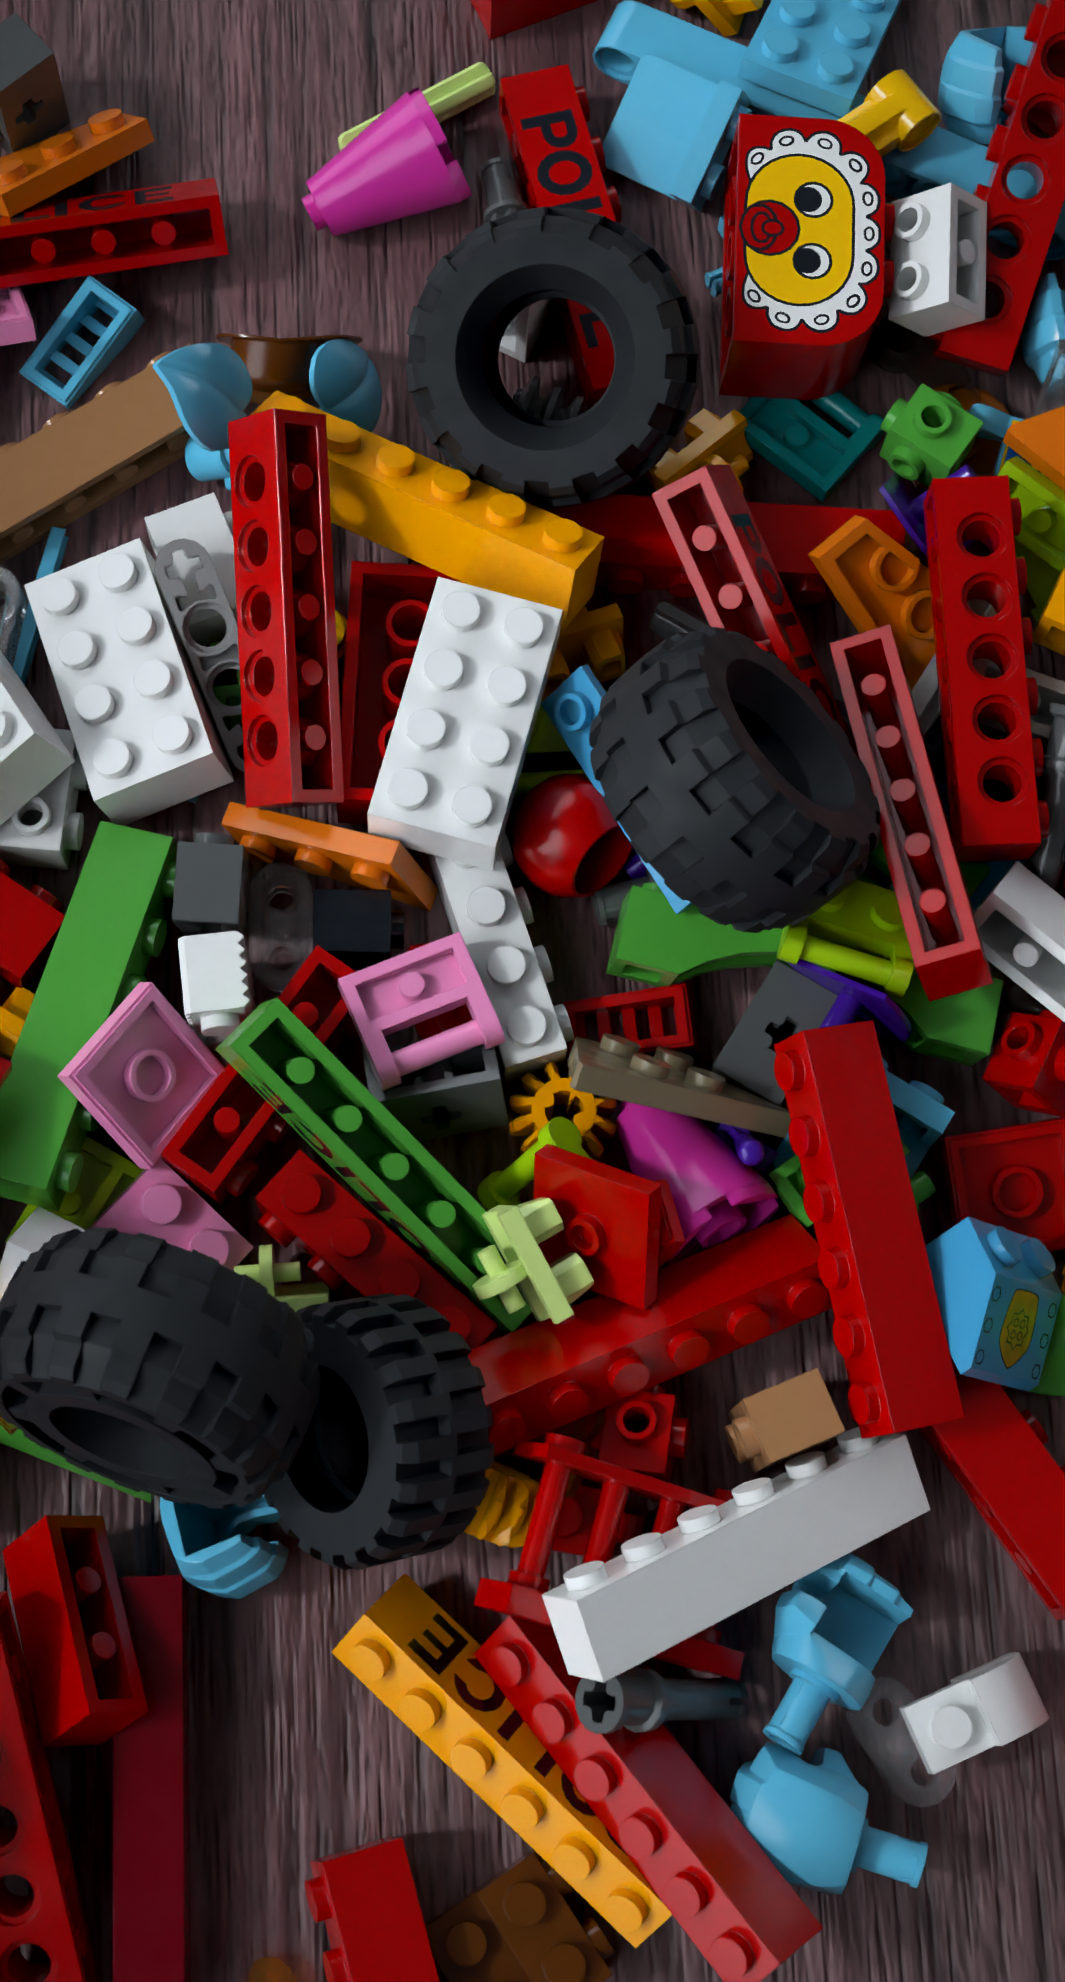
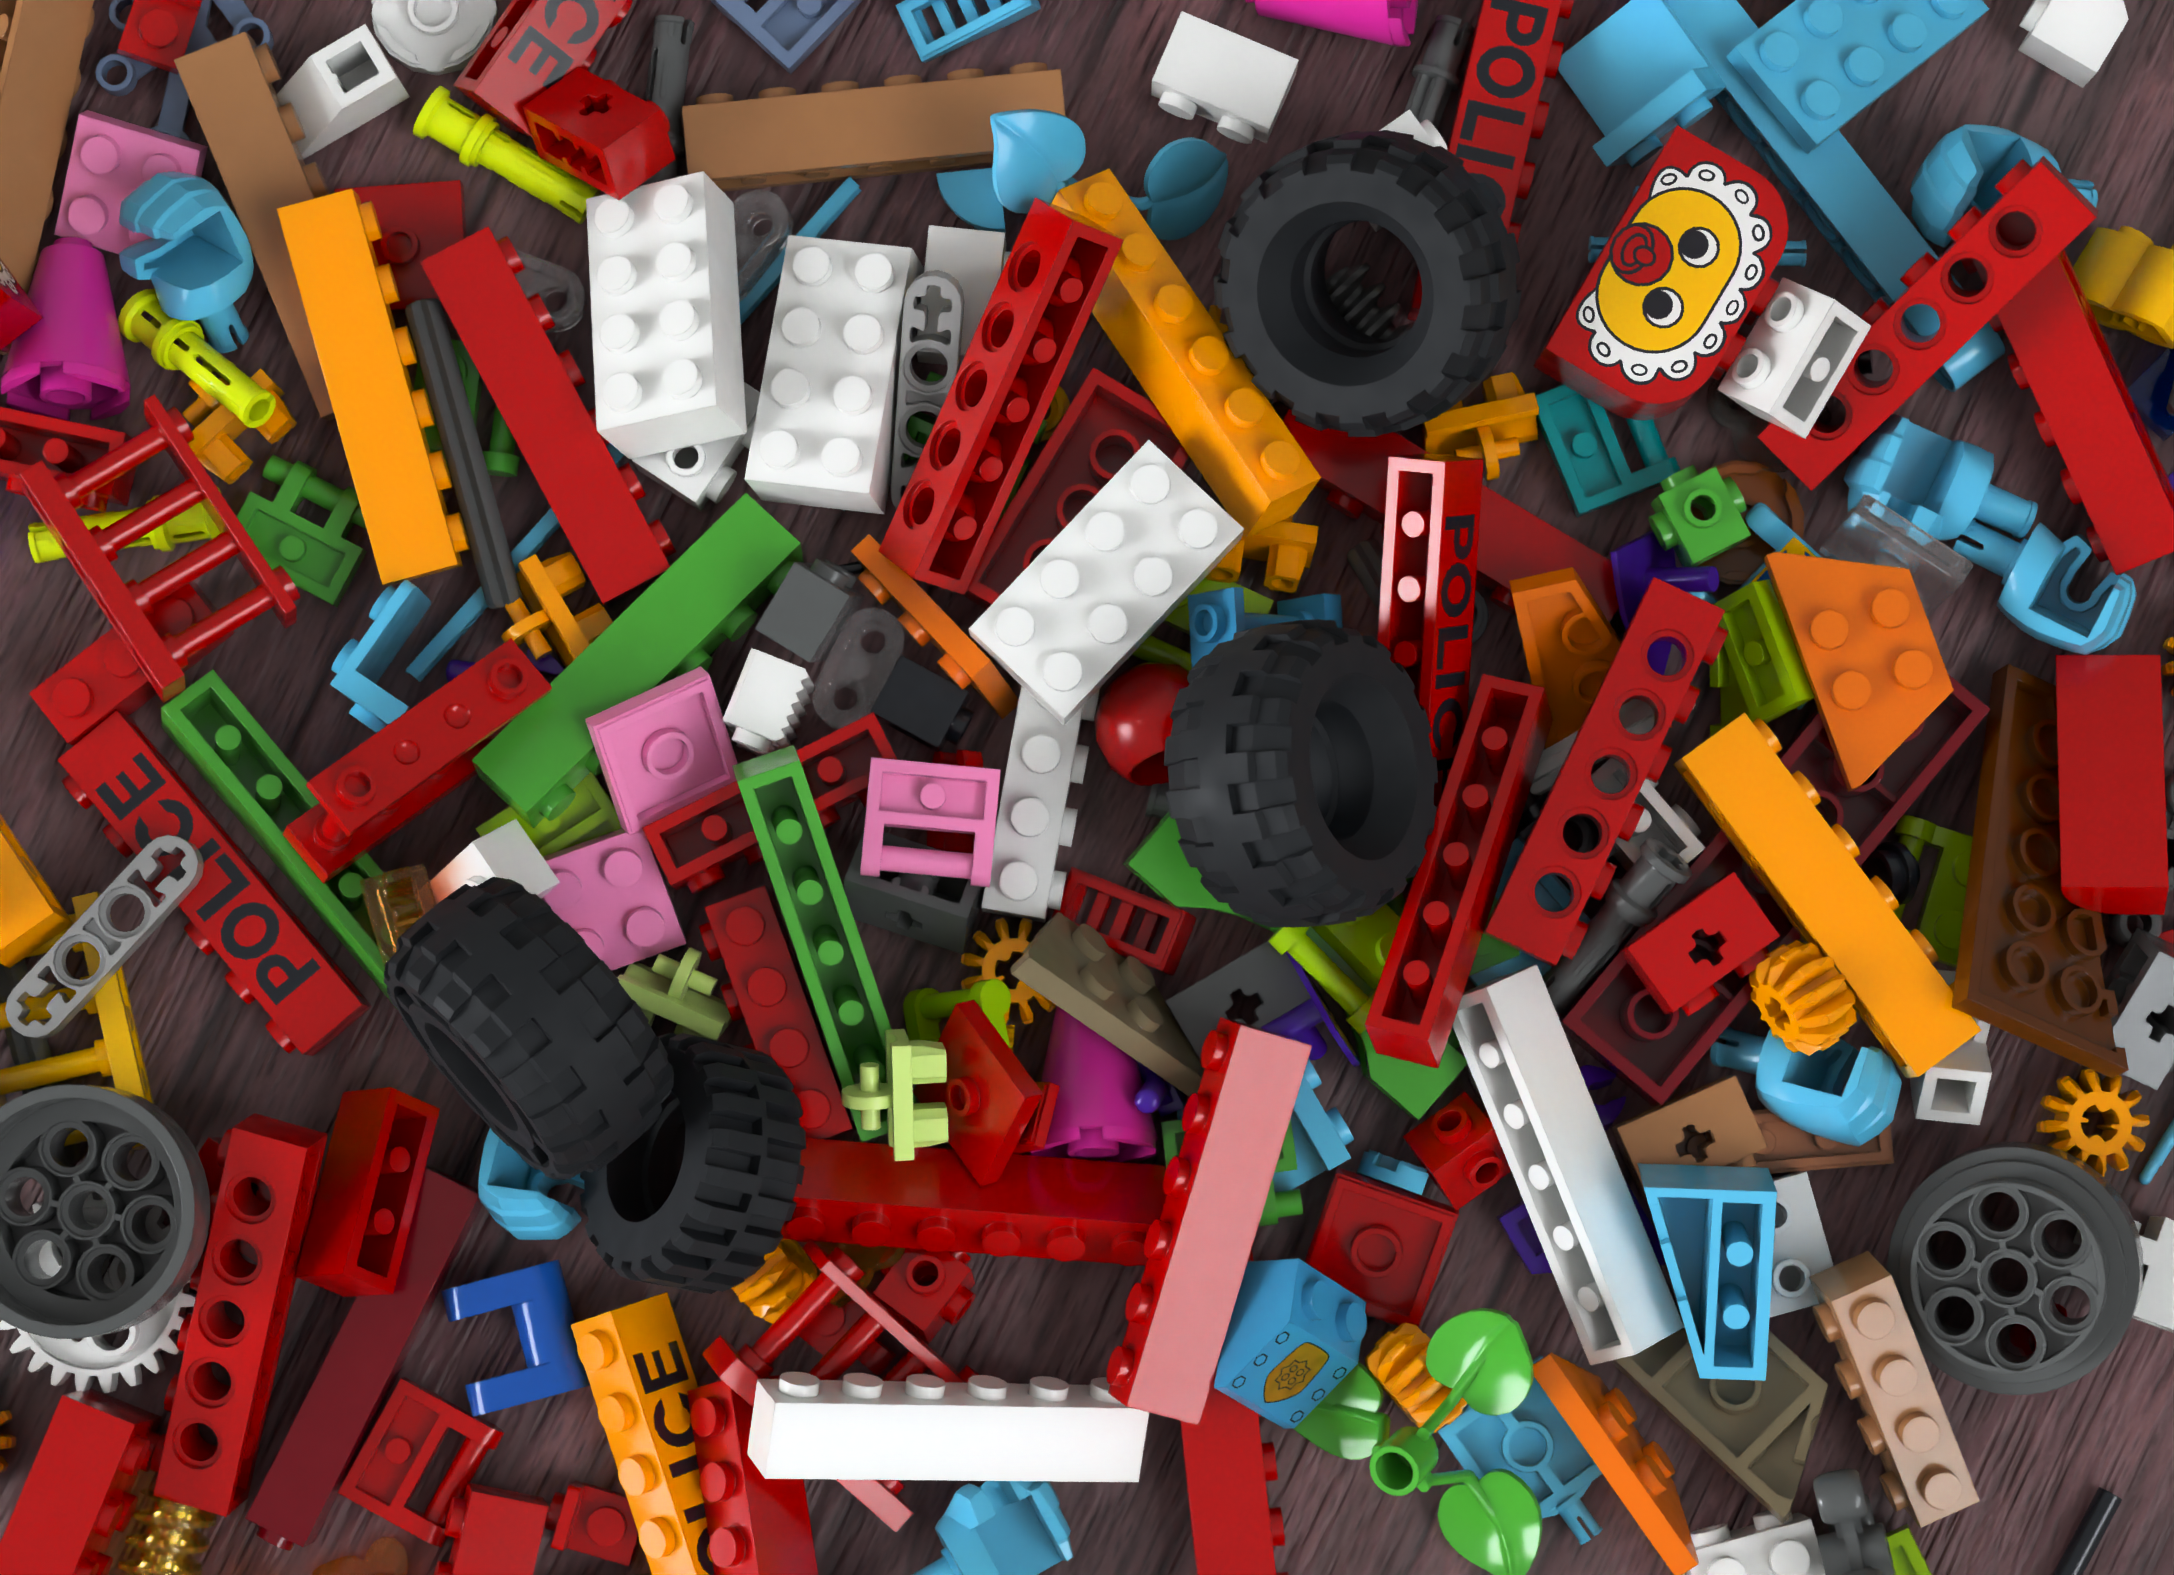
camera: 35 degrees right, 10 degrees up
(165, 487) = (973, 198): none -> medium azure tile
(231, 1867) = (403, 1448): none -> red plate
(278, 362) = (1133, 129): reddish brown piece -> none
(310, 1675) = (544, 1329): none -> blue connector
(332, 289) = (1223, 79): none -> white brick
(451, 1832) = (593, 1523): none -> red bracket
(645, 1700) = (803, 1508): dark grey pin -> none
(783, 1421) = (1050, 1341): medium nougat brick -> none
(895, 114) = (1847, 179): yellow piece -> none
(1006, 1111) = (1393, 1171): none -> medium azure tile

